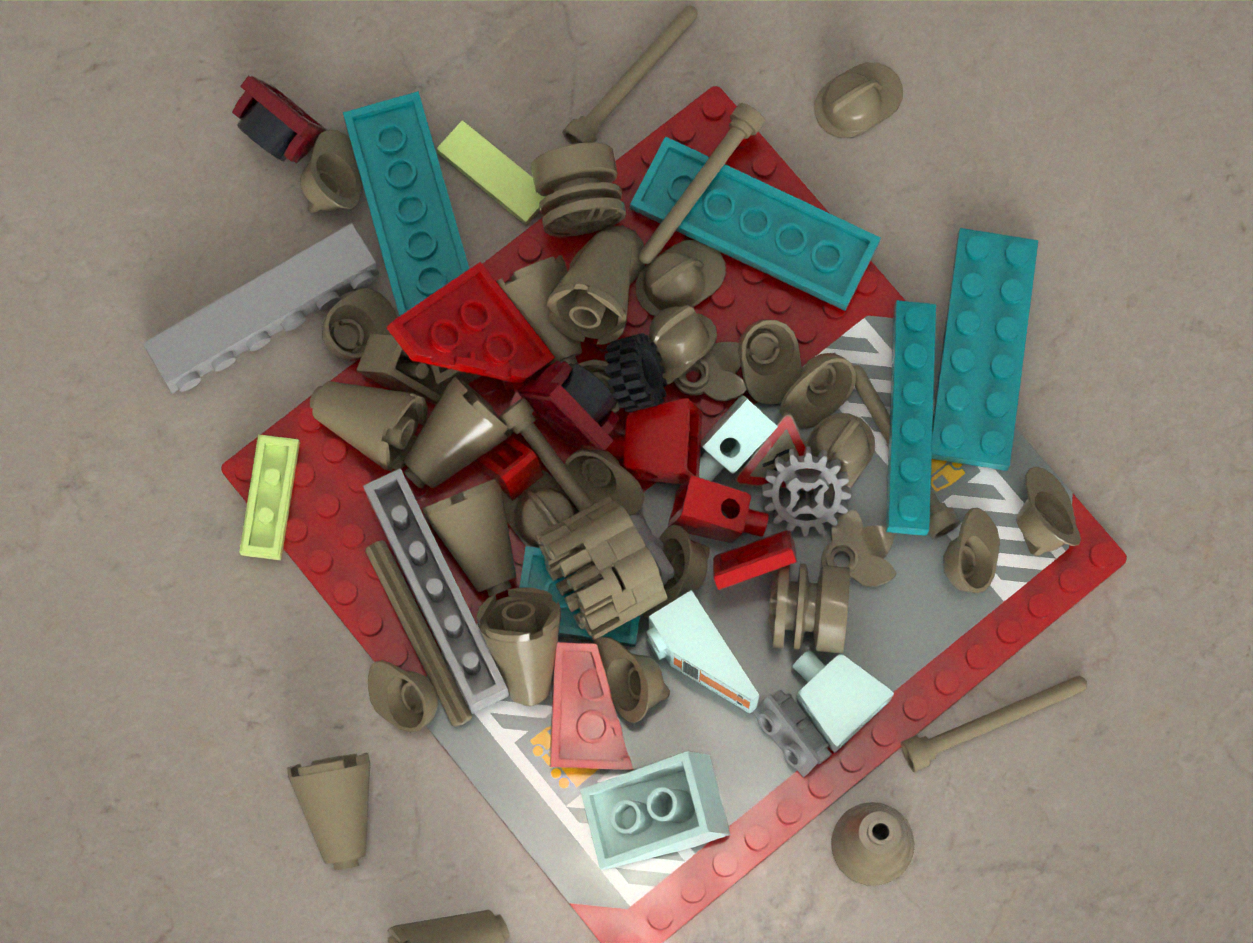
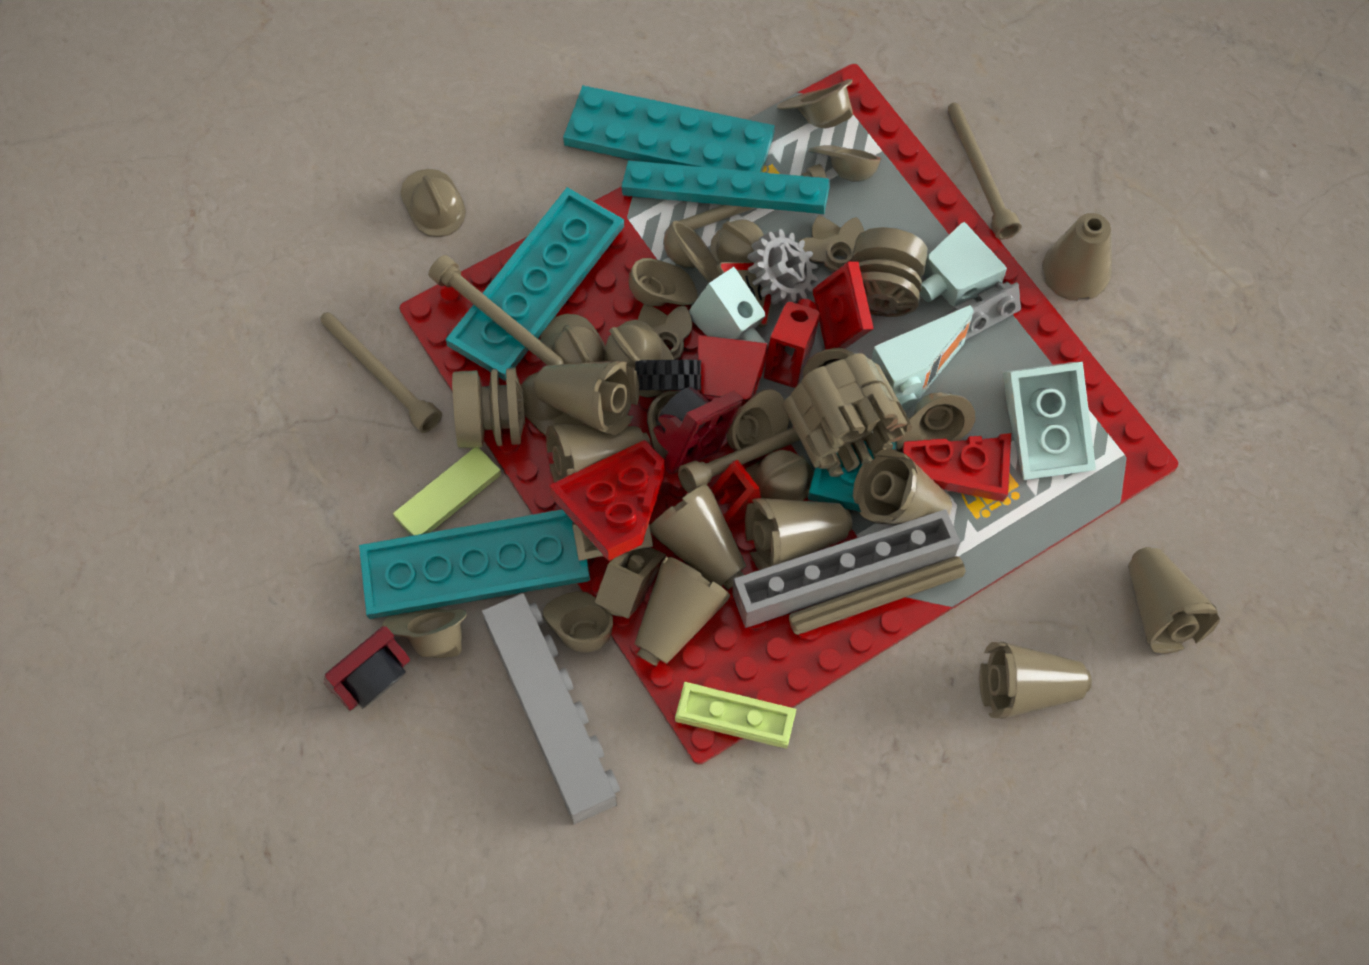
camera: 85 degrees left, 10 degrees down
(401, 696) = (936, 615): dark tan cap -> none

